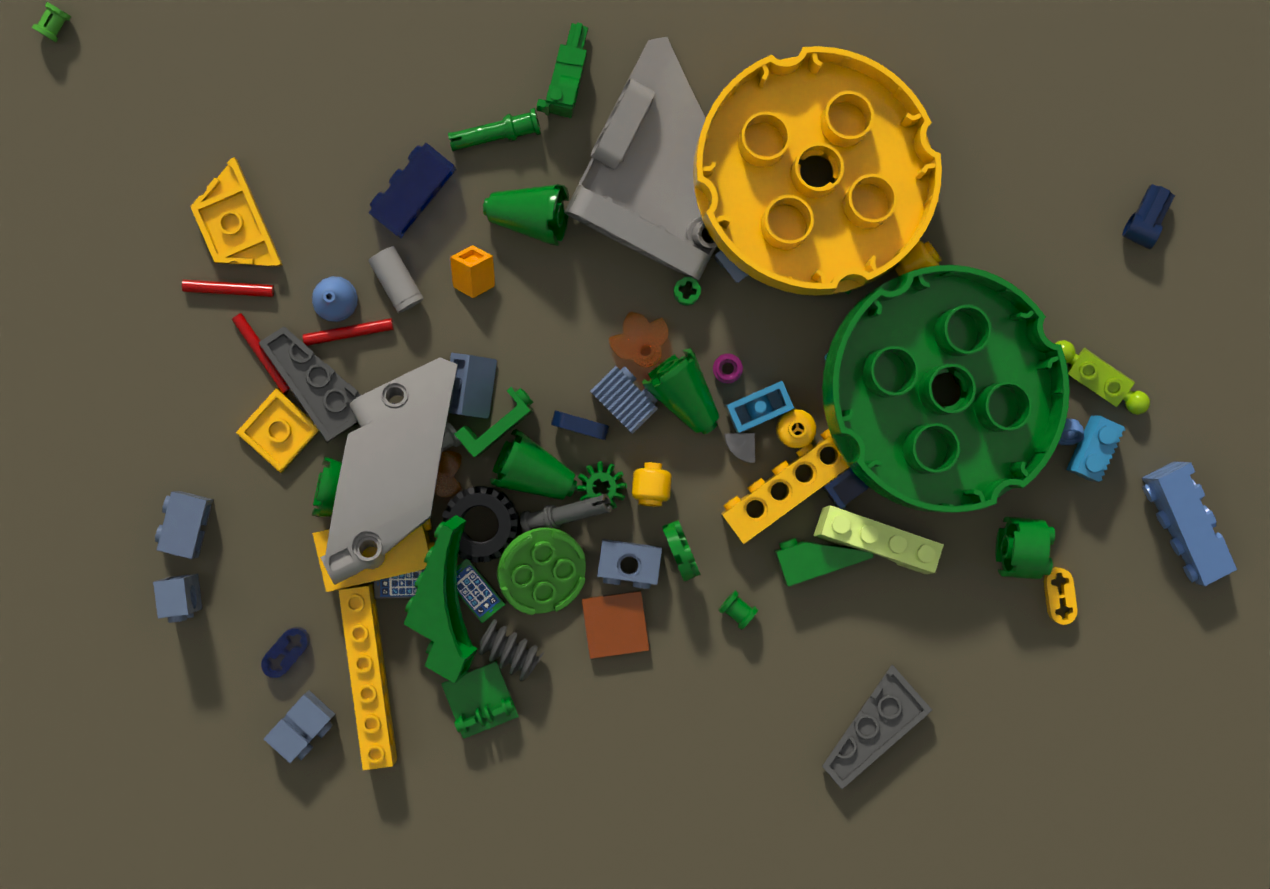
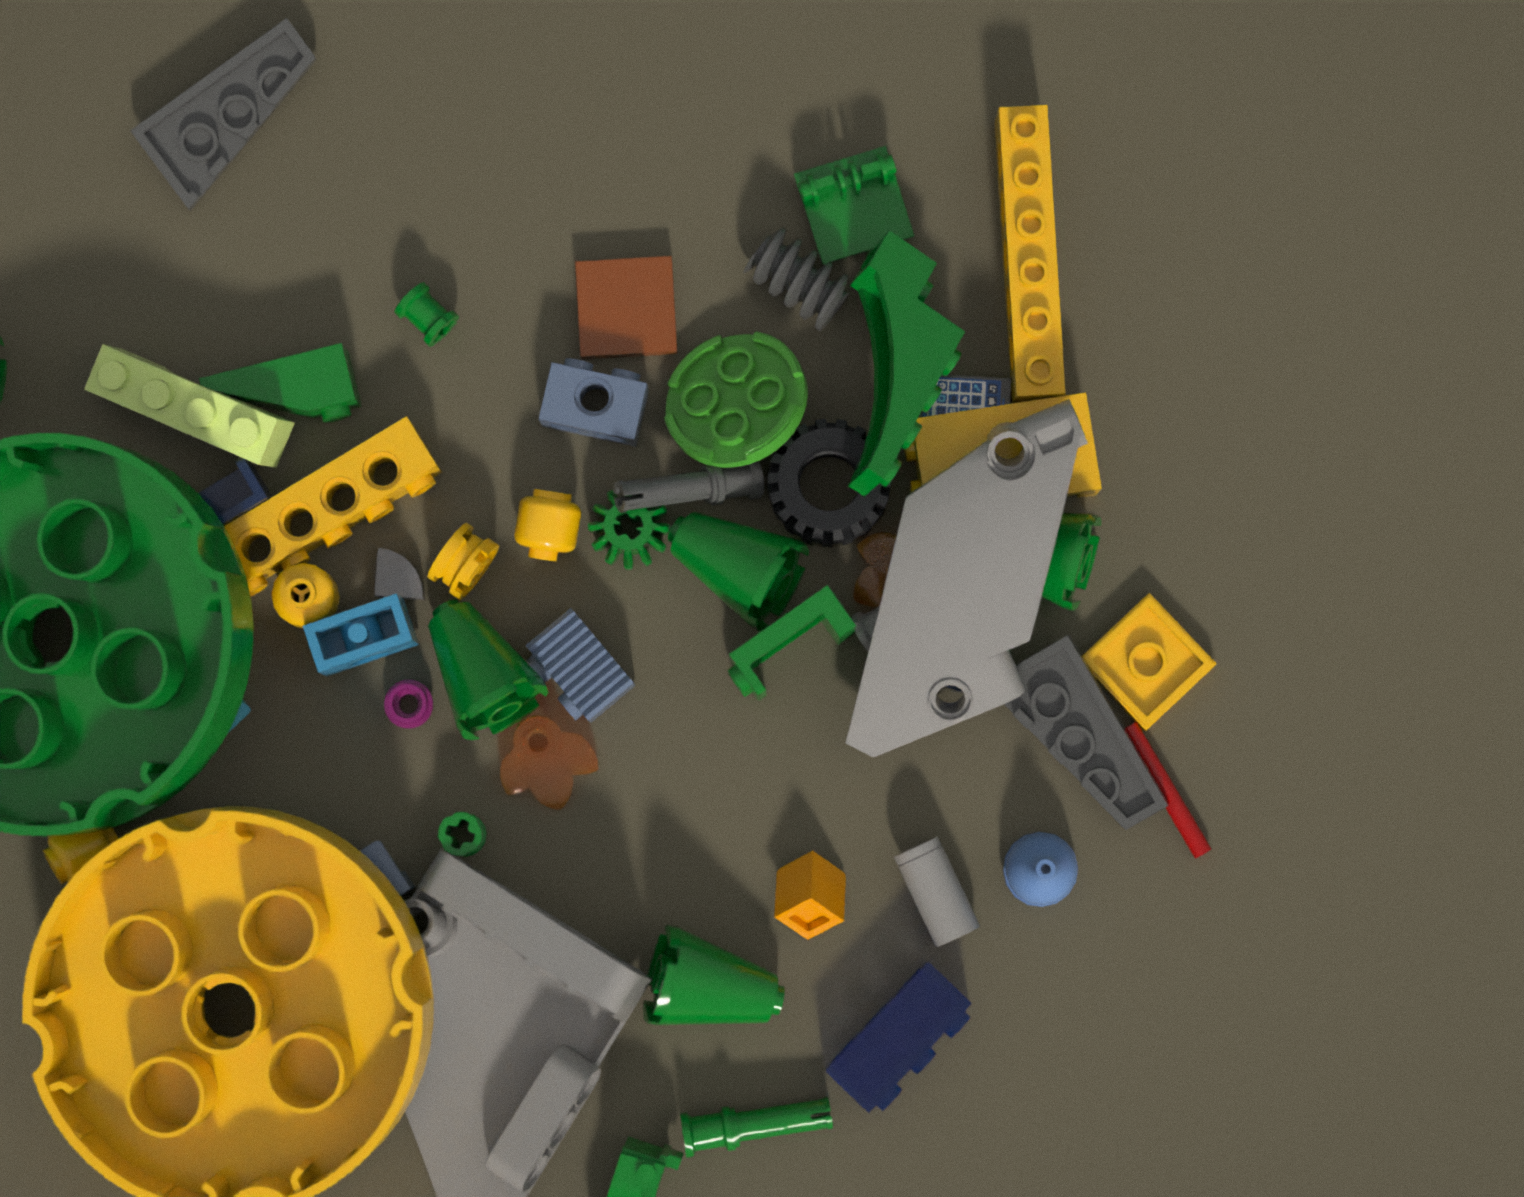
camera: 170 degrees left, 5 degrees down
(177, 597) = (1326, 403): sand blue brick -> none
(182, 524) = (1311, 521): sand blue piece -> none
(228, 288) = (1214, 900): red bar -> none
(233, 221) = (1196, 1009): yellow wing -> none
(280, 647) = (1152, 297): clear blue beam -> none
(298, 728) = (1145, 183): sand blue piece -> none
(348, 332) = (1022, 813): red bar -> none
(472, 385) = (824, 709): sand blue panel -> none
(477, 591) = (843, 375): tile -> none
(580, 425) = (655, 630): dark blue beam -> none
(681, 550) = (509, 413): green plate -> none
(701, 457) = (463, 561): none -> yellow wheel

